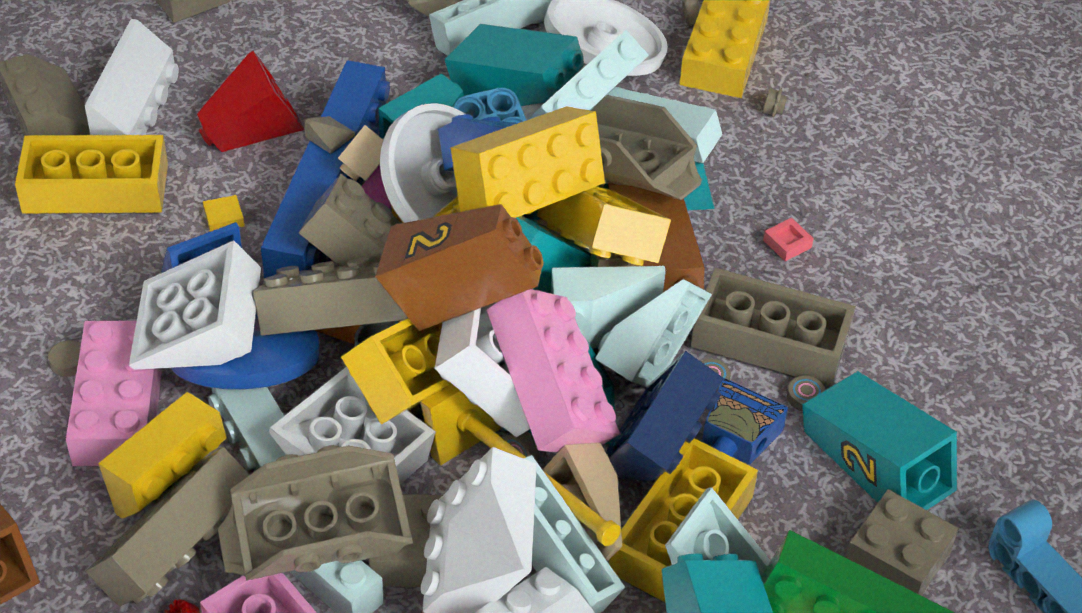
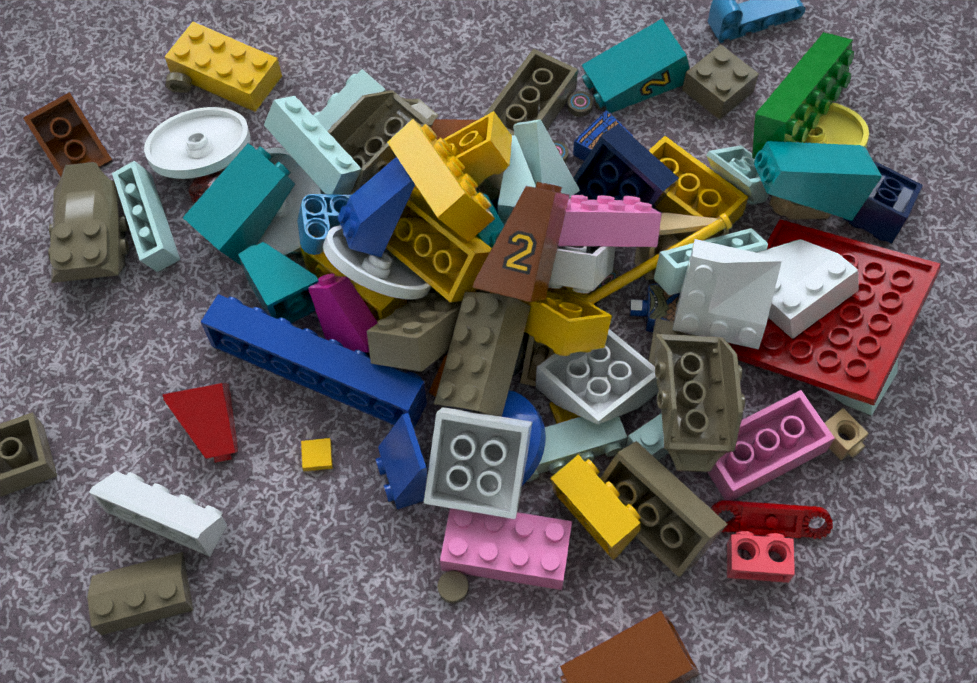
camera: 75 degrees left, 15 degrees up
(92, 174) = (255, 551): yellow brick -> none
(327, 133) = (293, 343): dark tan slope -> none
(362, 154) = (326, 318): tan slope -> none
(774, 102) = (298, 52): dark tan plate -> none
(788, 239) = (441, 79): coral plate -> none

